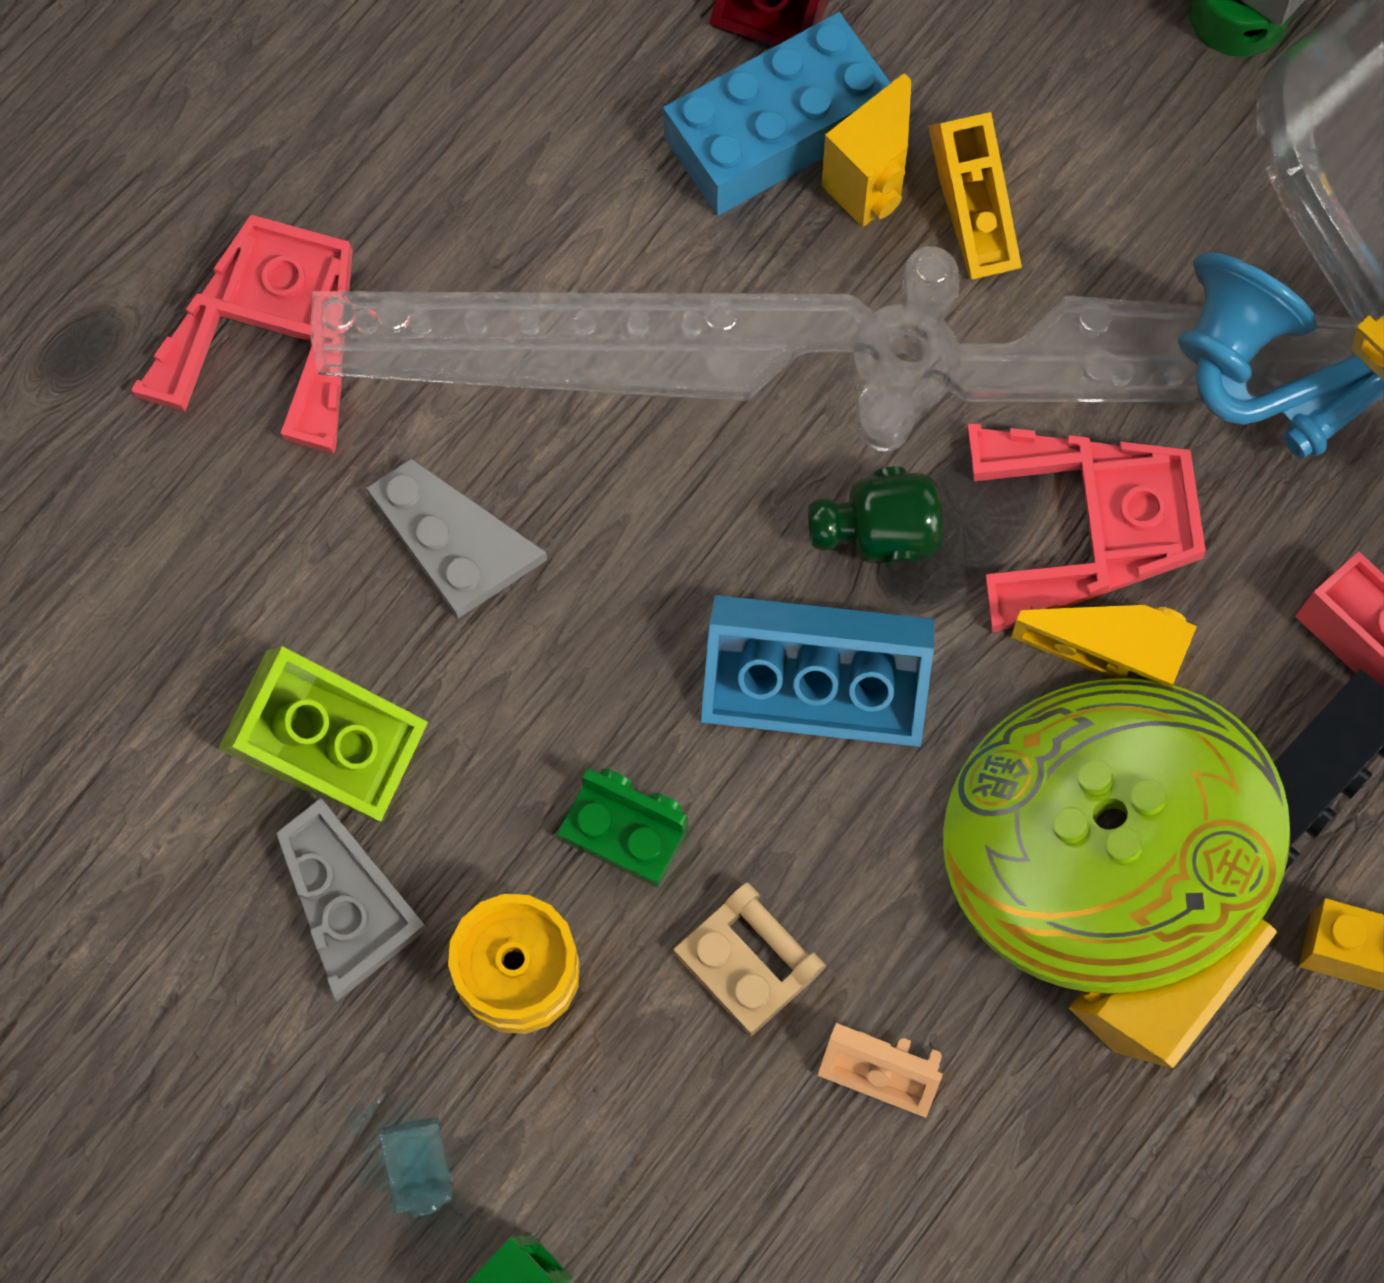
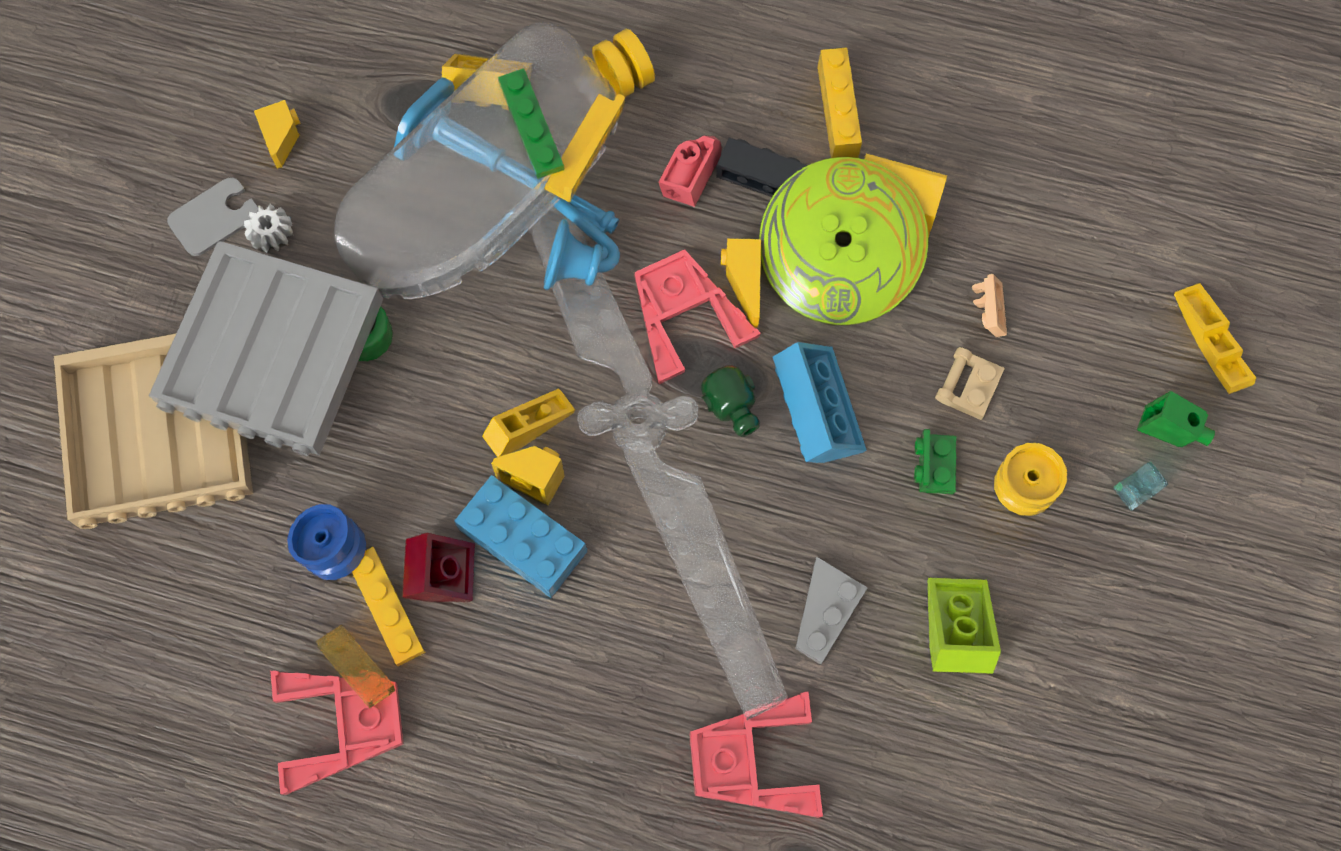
camera: 115 degrees left, 0 degrees up
(346, 898) = (1033, 577): light grey wing -> none

